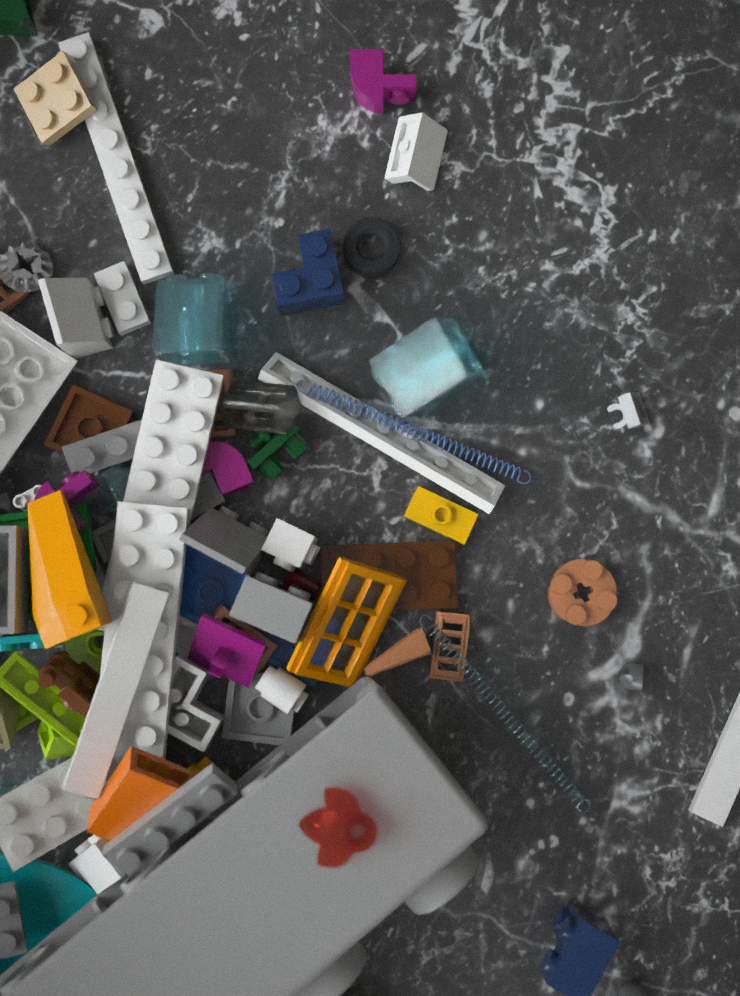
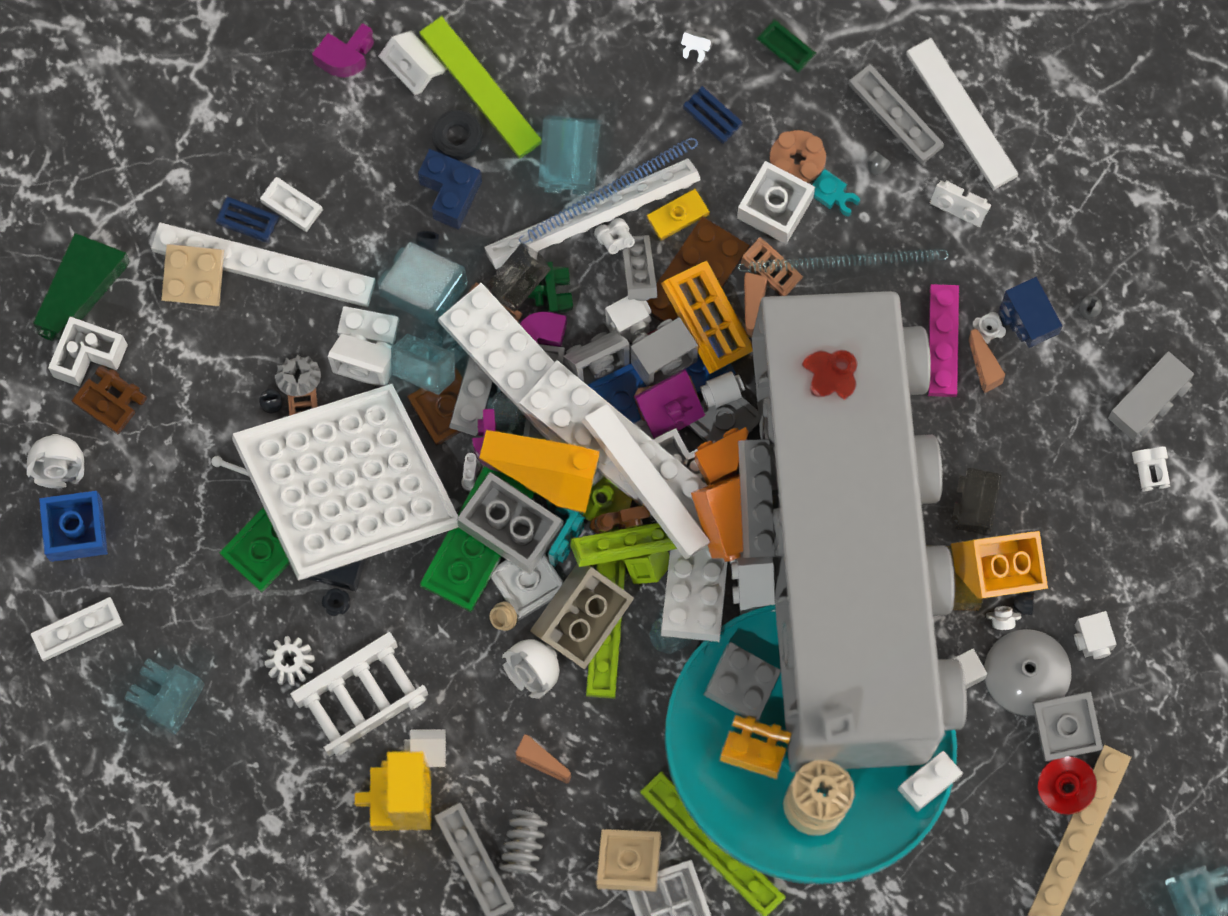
camera: 55 degrees left, 10 degrees down
(107, 376) = (425, 361): none -> clear light blue brick
(156, 136) = (268, 228): none -> dark blue tile
(191, 140) = (291, 204): none -> white plate
(197, 745) = (720, 458): none -> orange slope
(242, 288) = (427, 240): none -> black hinge
(345, 521) = (640, 270): none -> light grey plate
(373, 462) = (614, 236): none -> white piece
(436, 234) = (480, 87): none -> lime tile
(494, 936) = (987, 367): none -> nougat slope
(503, 864) = (943, 340): none -> dark pink plate
(518, 606) = (775, 202): none -> white brick
(546, 914) = (991, 319): none -> white plate
(570, 646) = (830, 191): none -> teal plate
(580, 481) = (696, 99): none -> dark blue tile
(651, 804) = (969, 208): none -> white hinge
(691, 500) = (786, 46): none -> dark green tile
(697, 660) = (896, 114): none -> light grey plate

